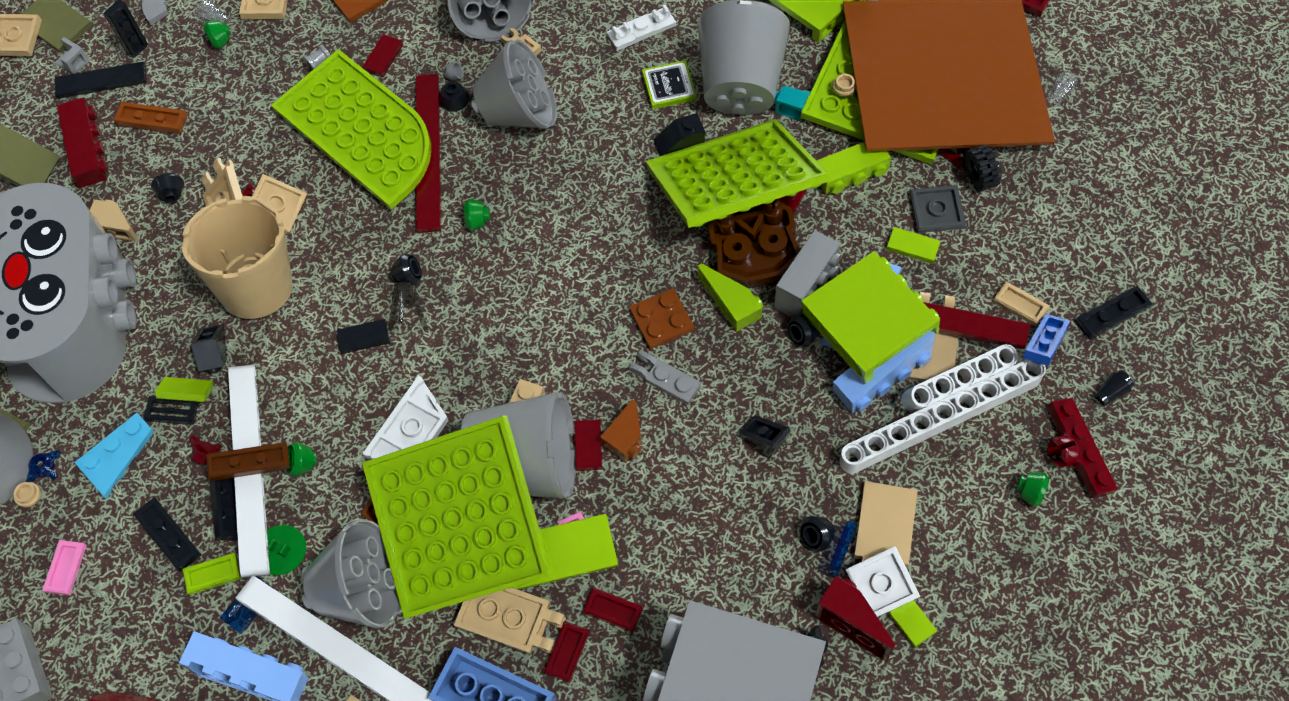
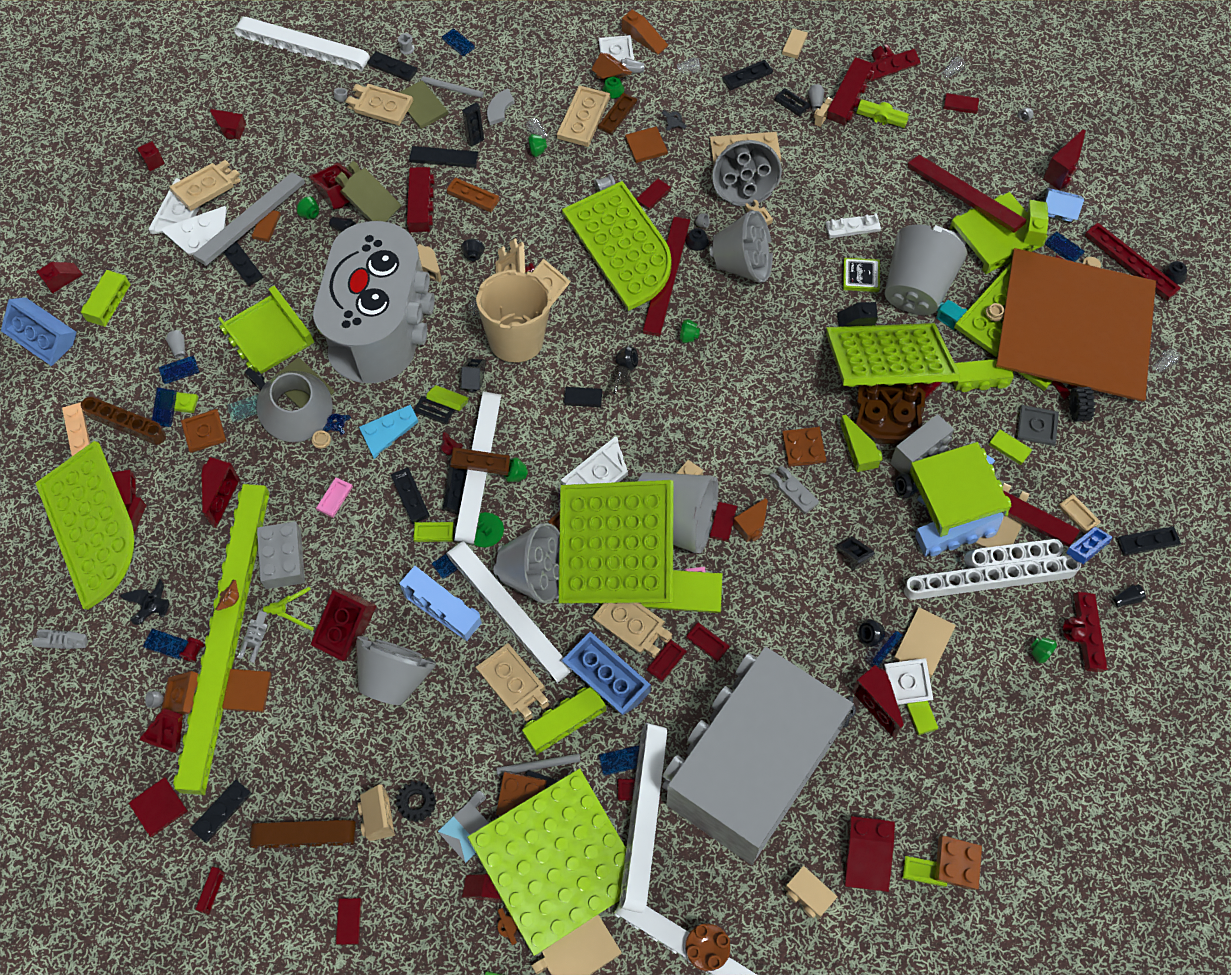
camera: 15 degrees right, 0 degrees up
(73, 58) = (428, 135): light grey panel -> none

